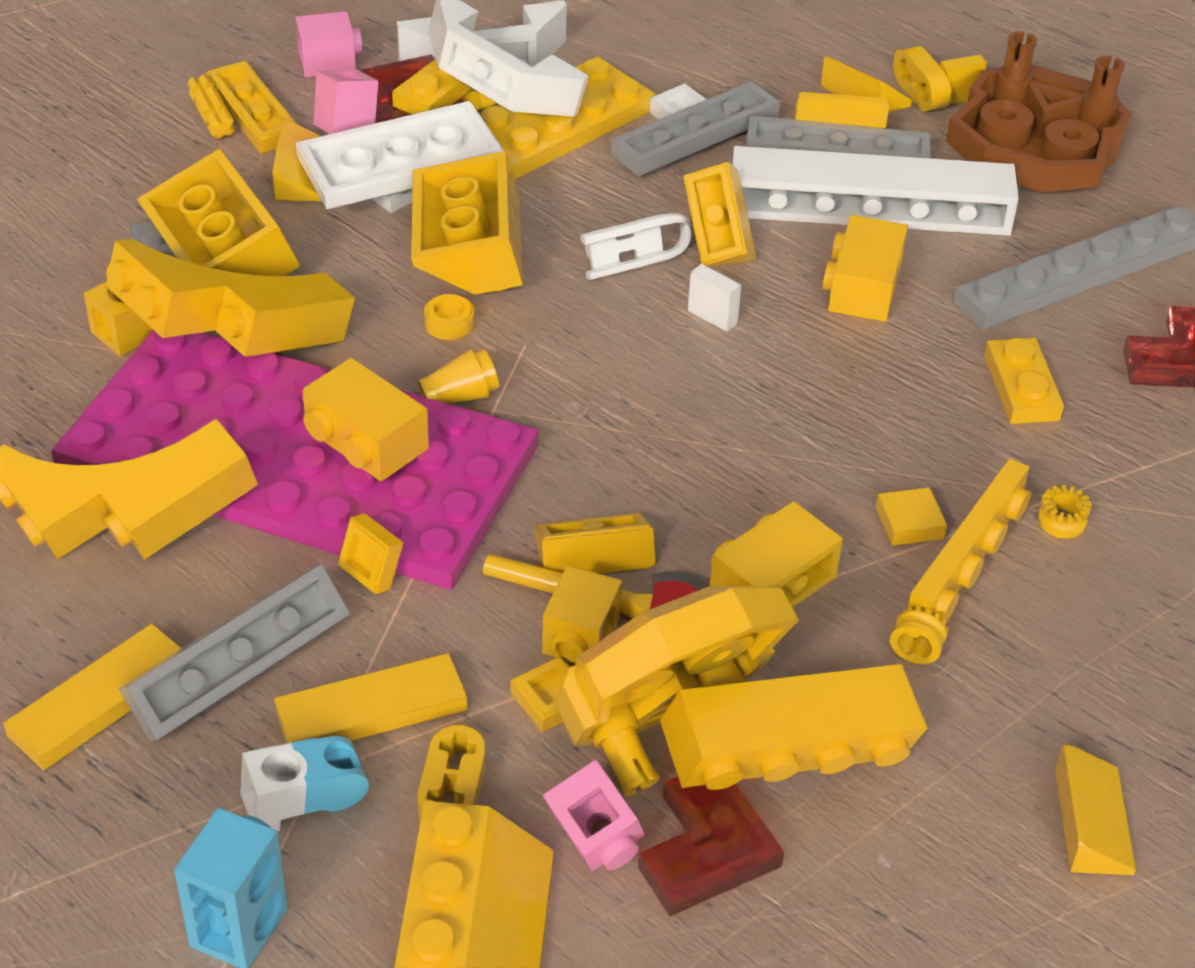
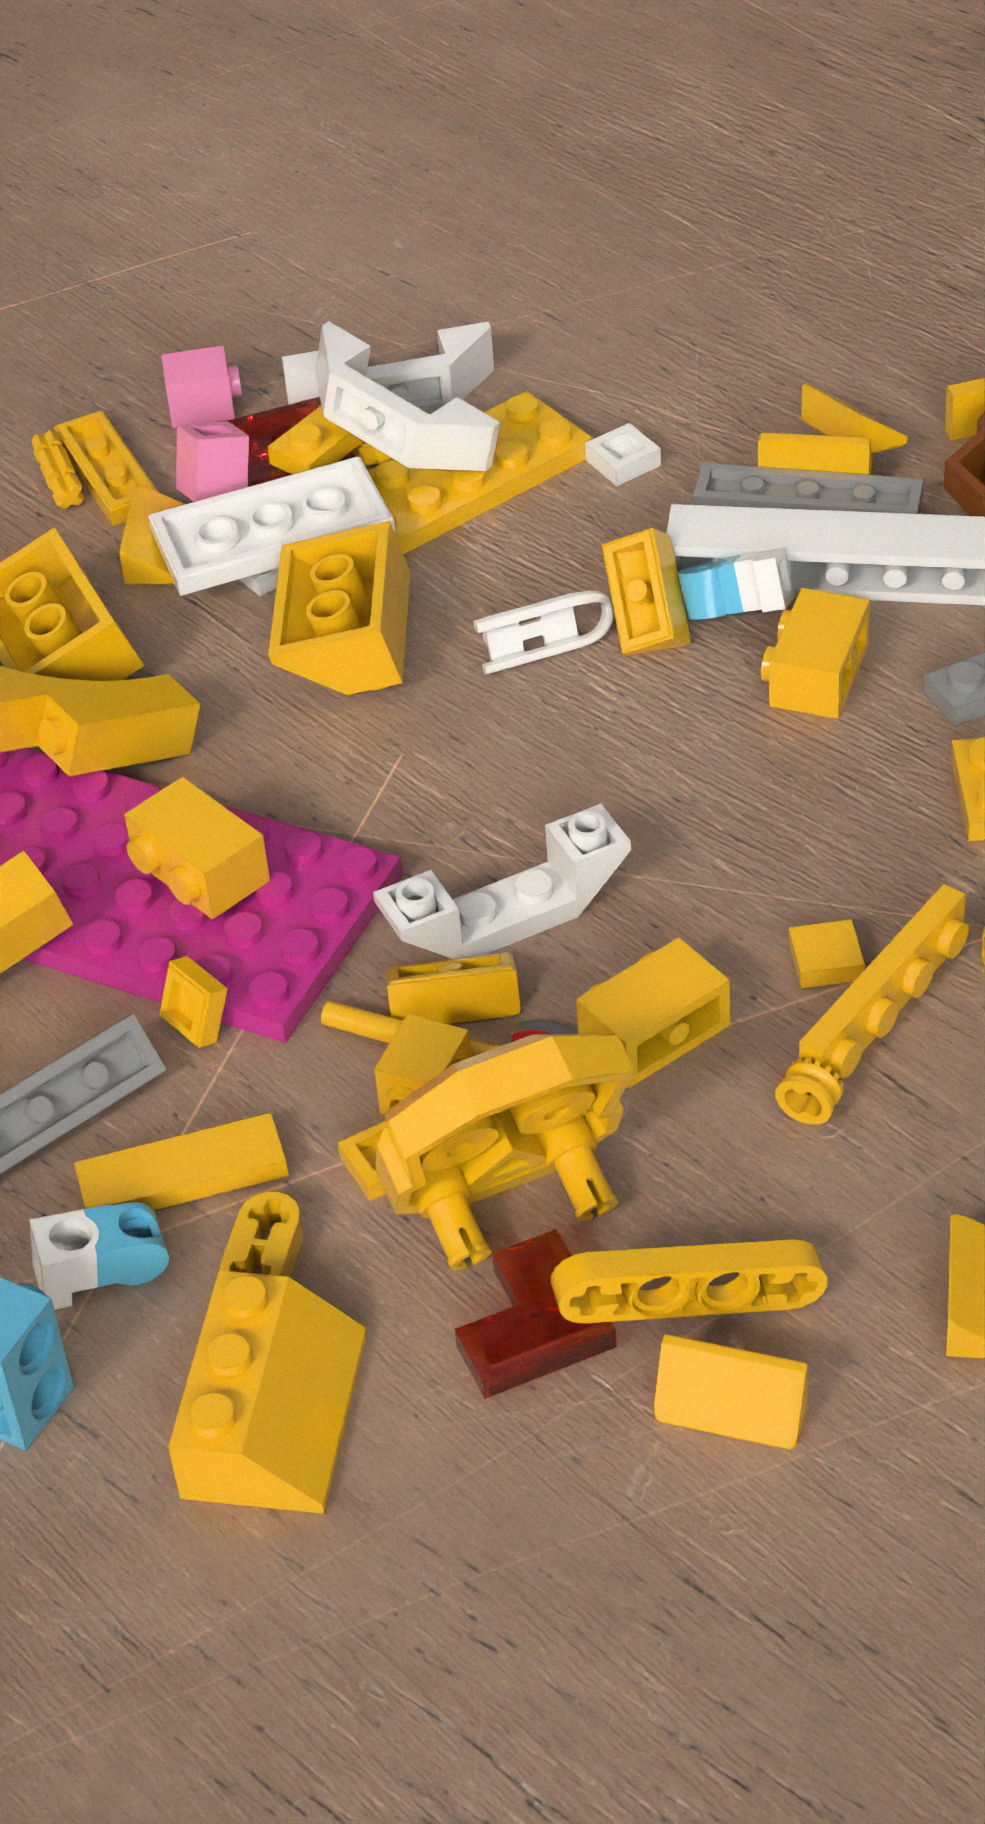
camera: 10 degrees right, 0 degrees up
(449, 317) = (314, 723): yellow tile -> none
(462, 379) = (318, 798): yellow cone -> none
(593, 798) = (410, 1292): bright pink brick -> none
(693, 128) = (632, 480): light grey plate -> none
(693, 437) = (580, 859): none -> white slope
(714, 297) = (627, 694): white tile -> none
(783, 809) = (771, 1278): none -> yellow beam
(792, 726) = (640, 1191): yellow brick -> none
(794, 211) = (738, 585): none -> leg
(893, 909) = (731, 1392): none -> yellow slope
(922, 78) = (926, 407): yellow beam -> none

